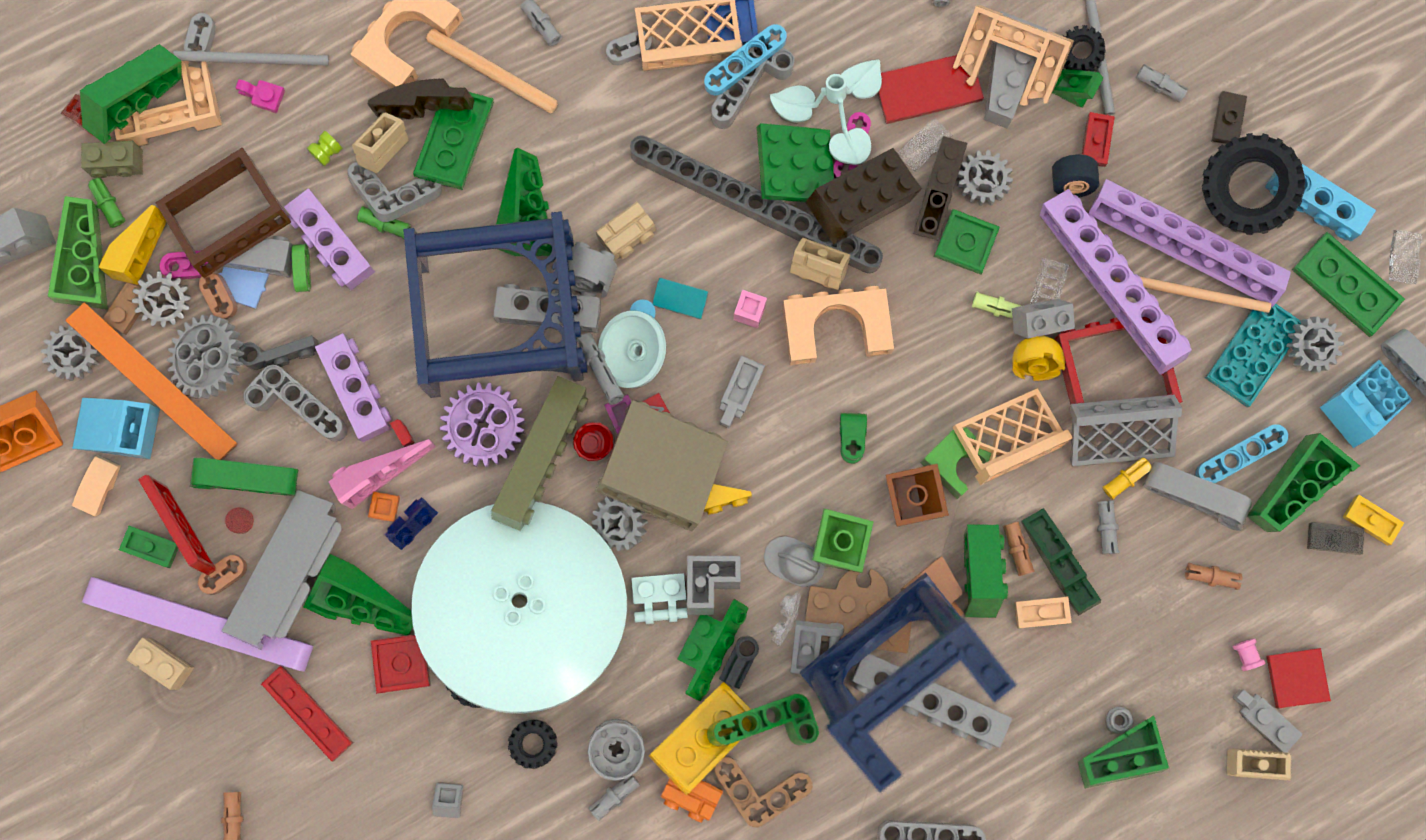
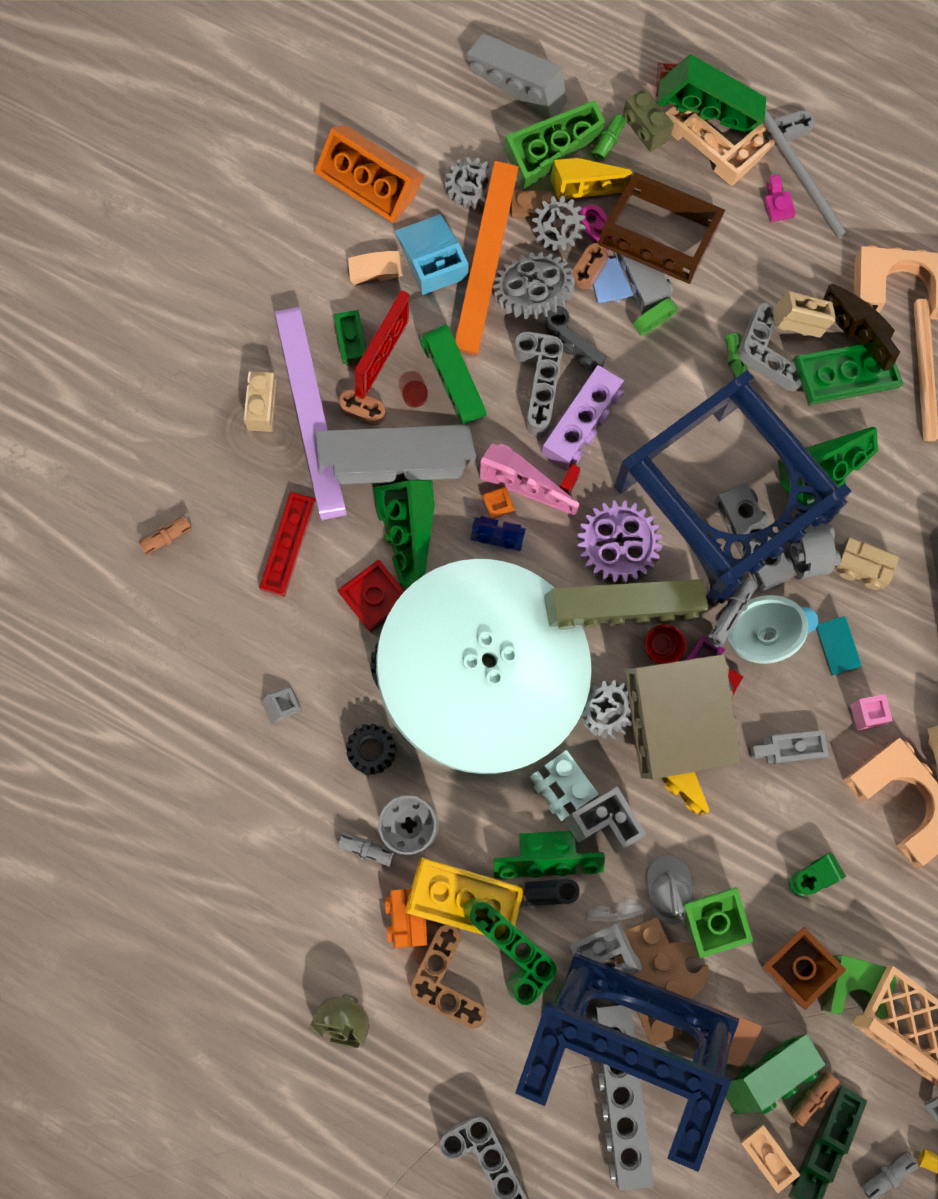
camera: 60 degrees right, 5 degrees down
(306, 207) = (684, 360): lavender brick -> none
(324, 148) = (769, 275): lime wheel -> none

